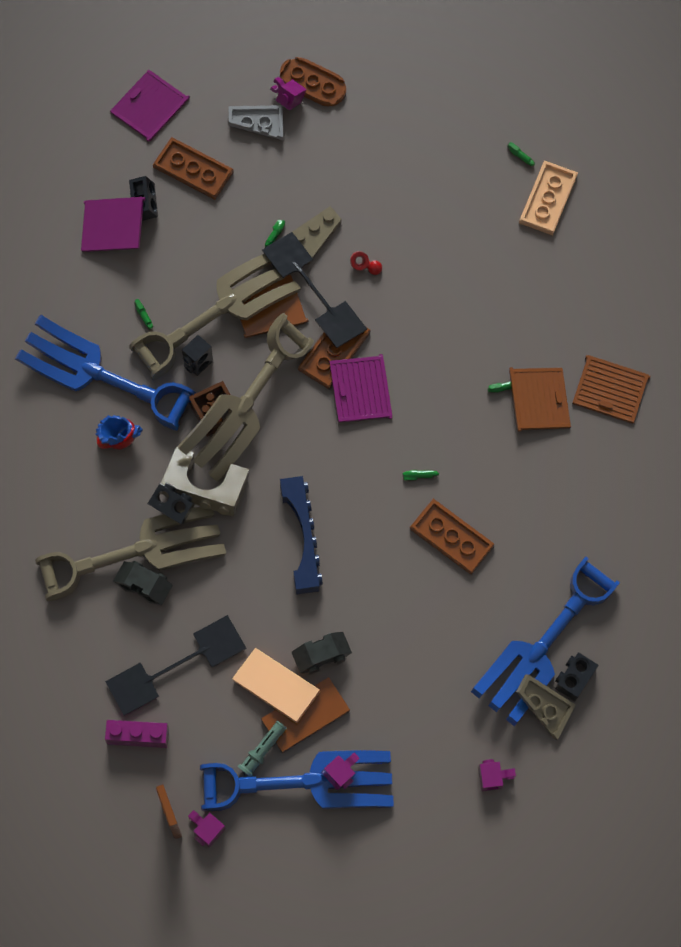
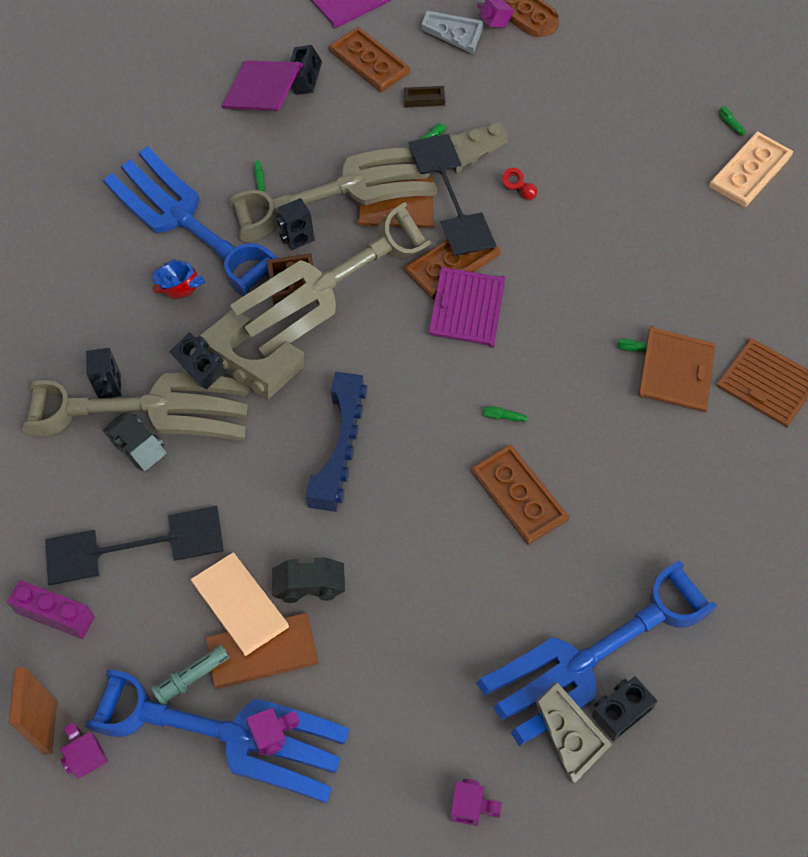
camera: 25 degrees right, 10 degrees down
(95, 534) = (103, 373): none -> black brick
(255, 195) = (424, 96): none -> dark brown tile

